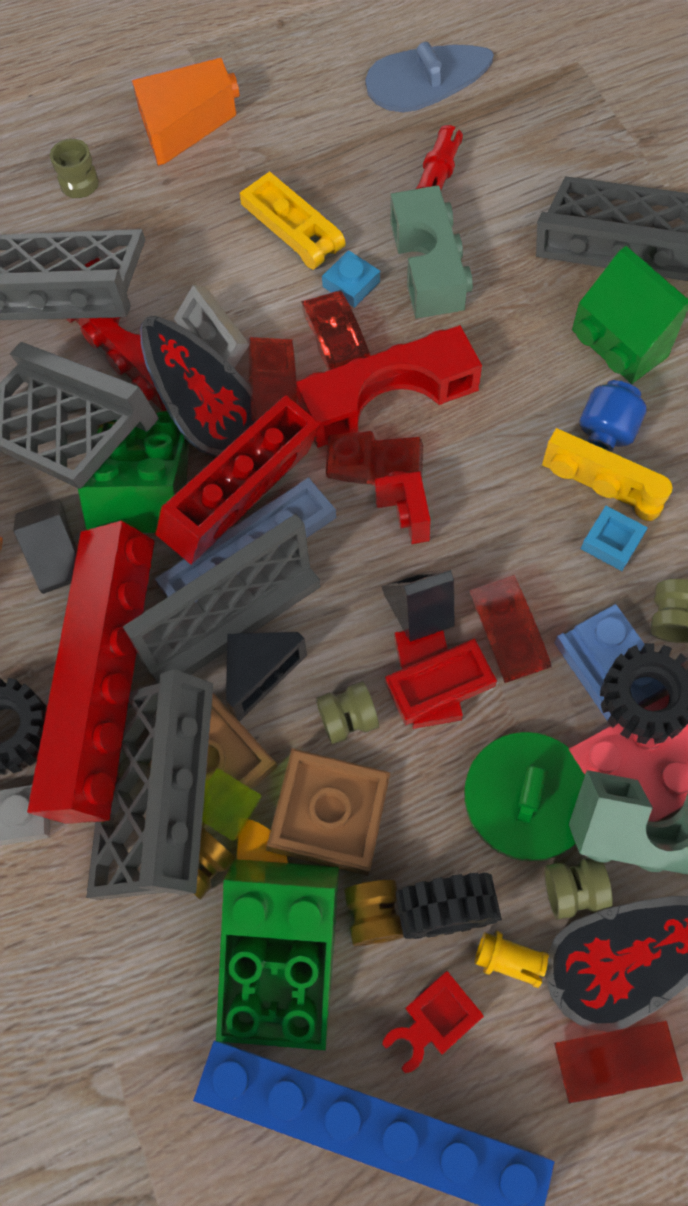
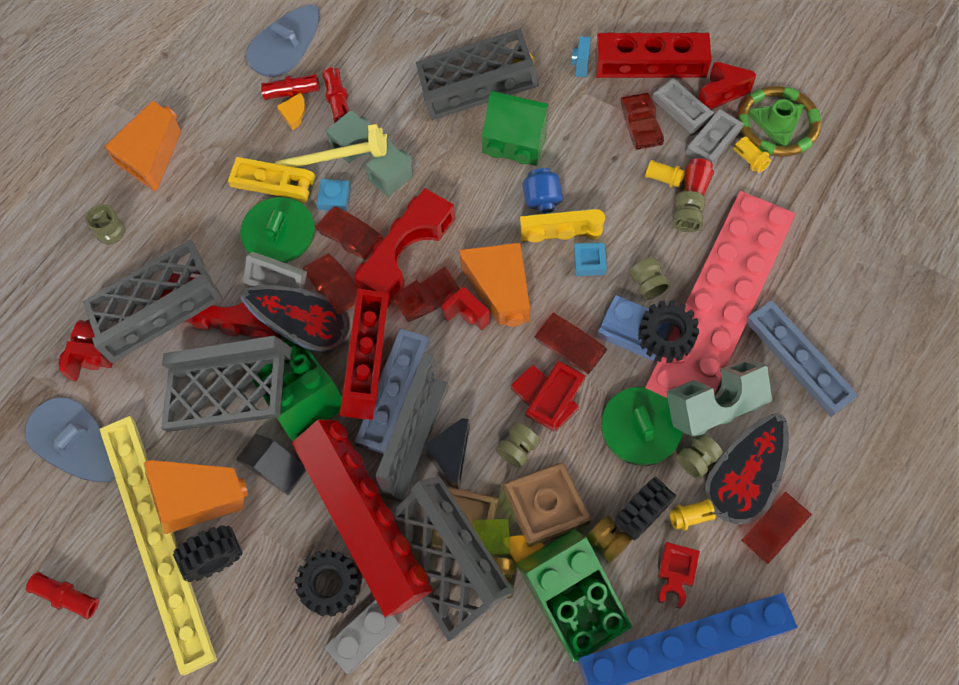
camera: 35 degrees left, 0 degrees up
(257, 281) = (278, 229): none -> green shield
(376, 156) = (293, 111): none -> light orange tile
(392, 127) = (290, 87): none -> red pin
(423, 603) = (514, 358): black slope -> none
(435, 239) = (377, 146): none -> light yellow piece
(476, 495) = (499, 280): none -> orange slope

